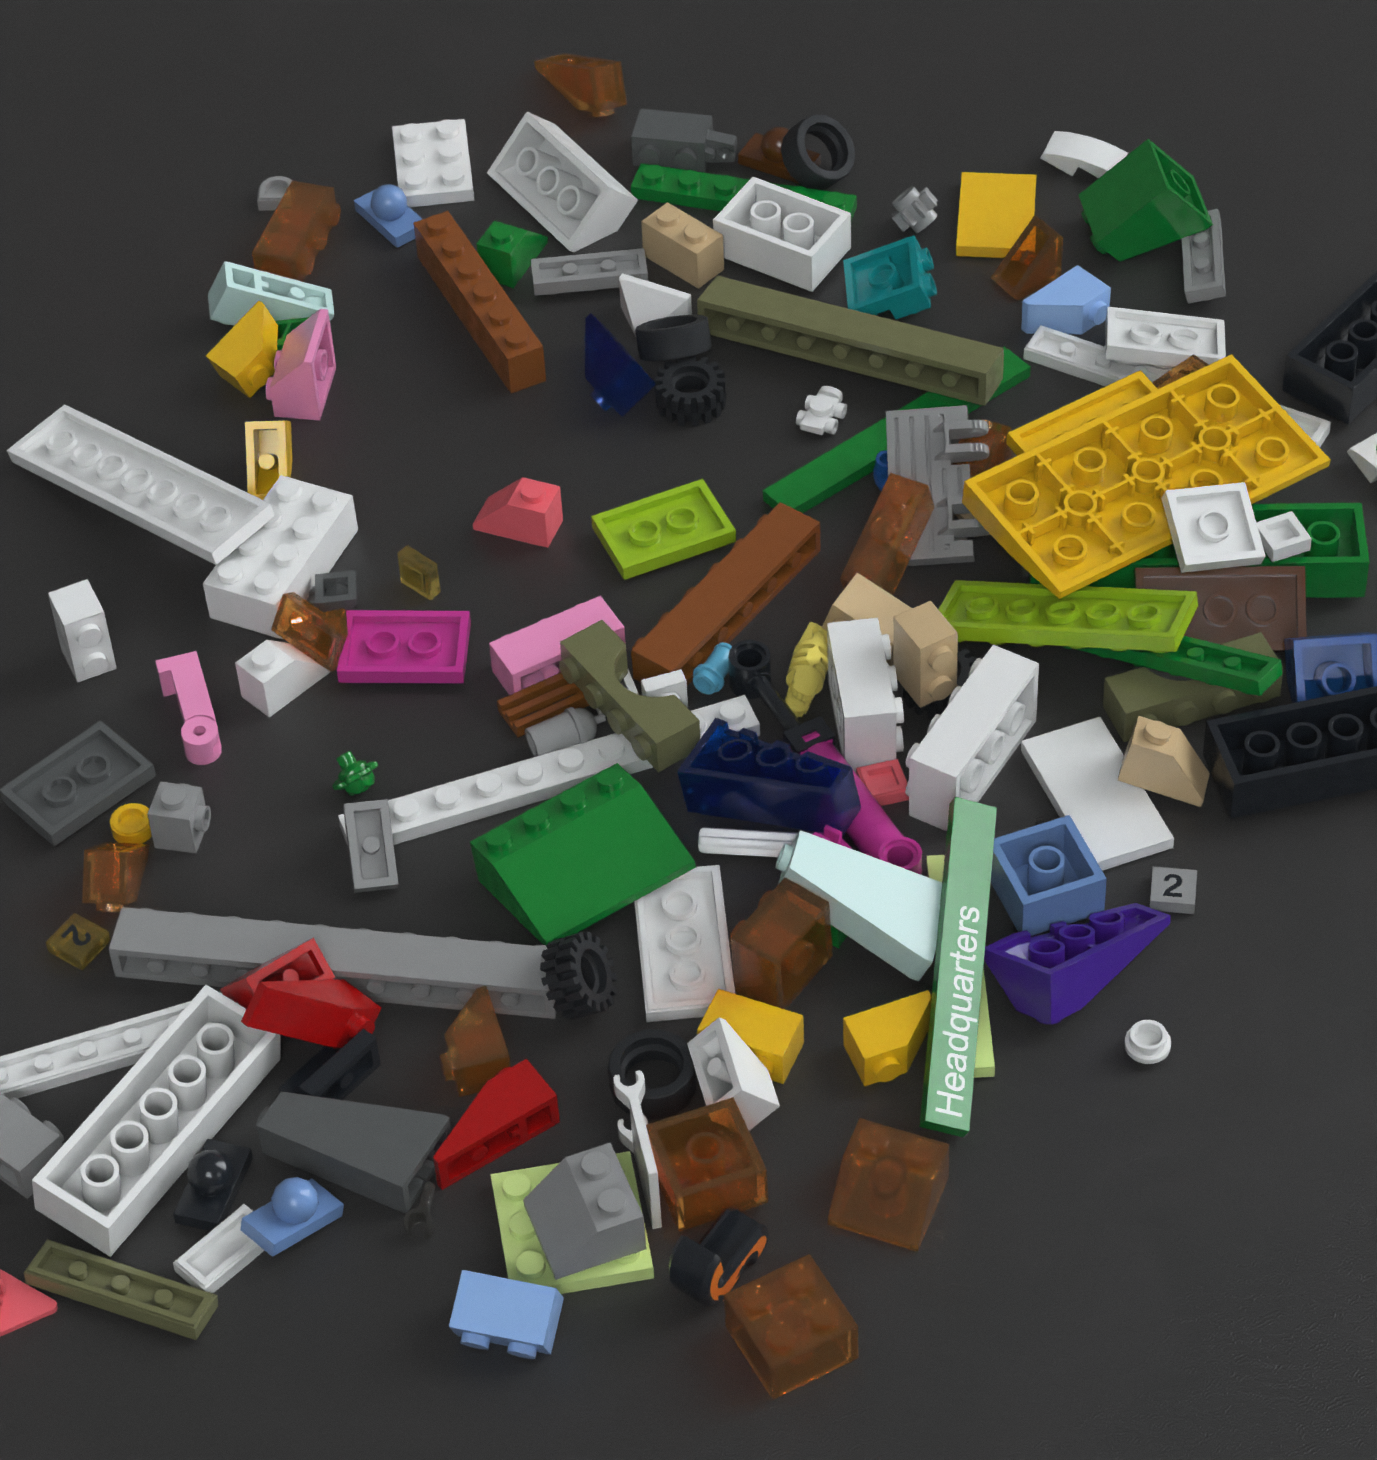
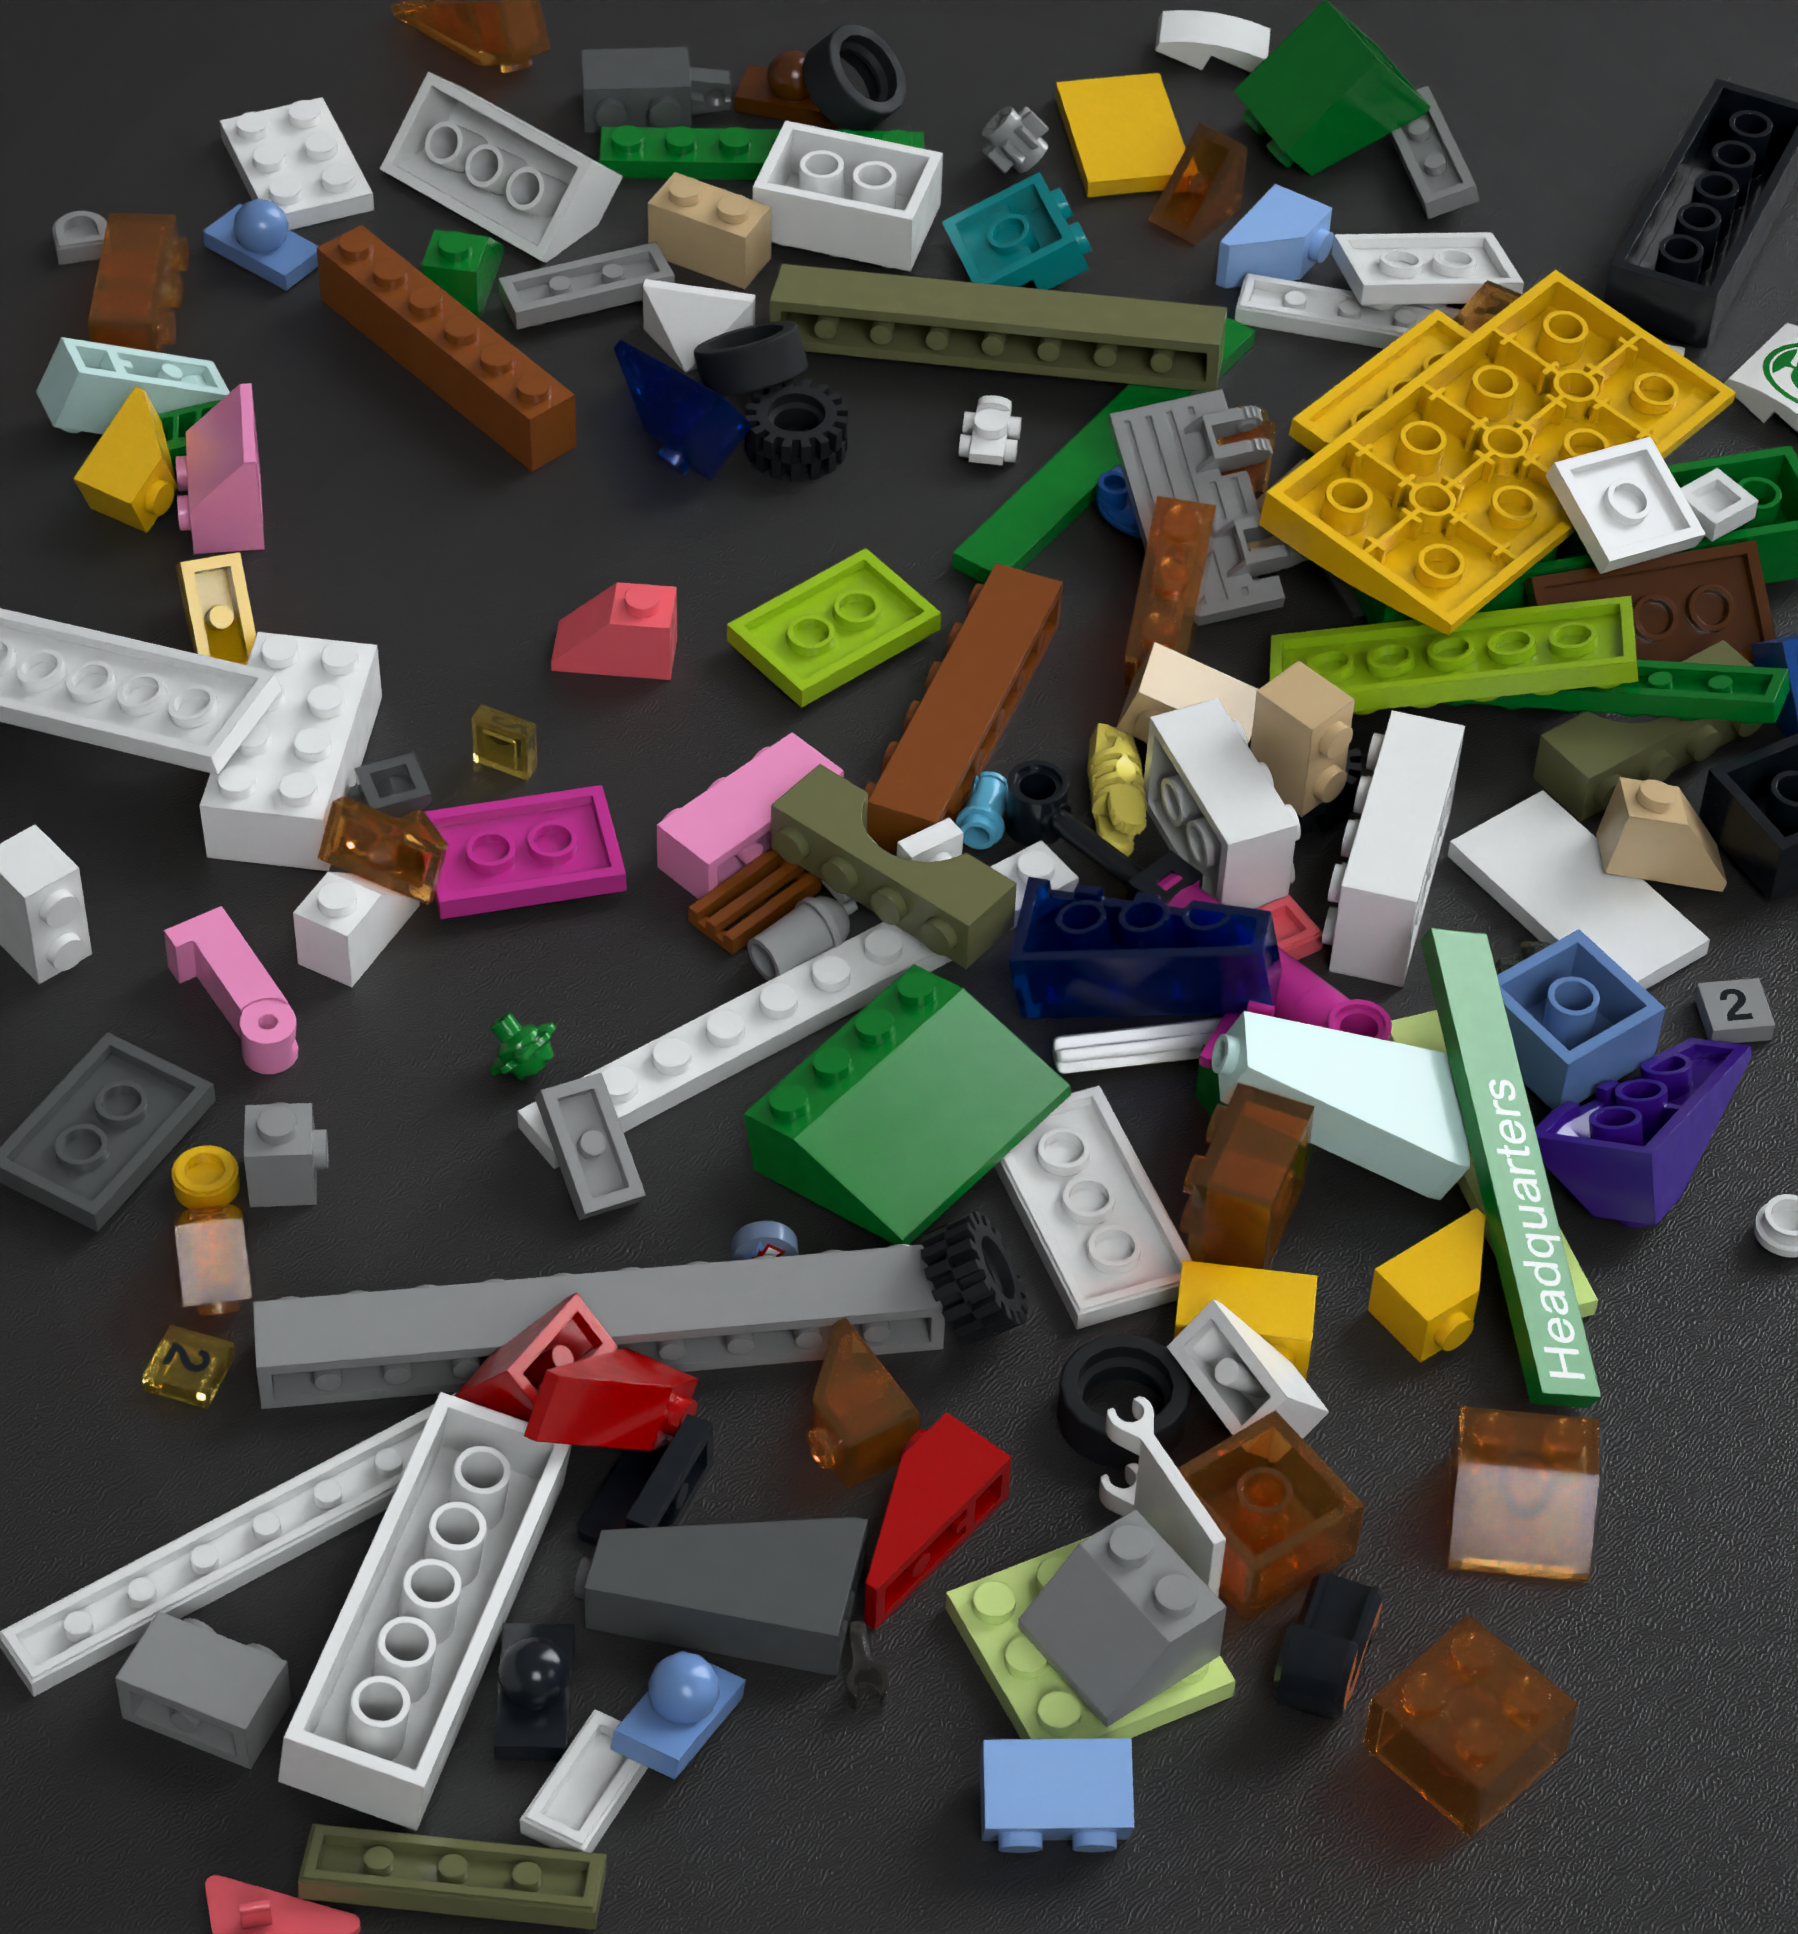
camera: 20 degrees left, 0 degrees up
(459, 926) = (763, 1239): none -> sand blue tile

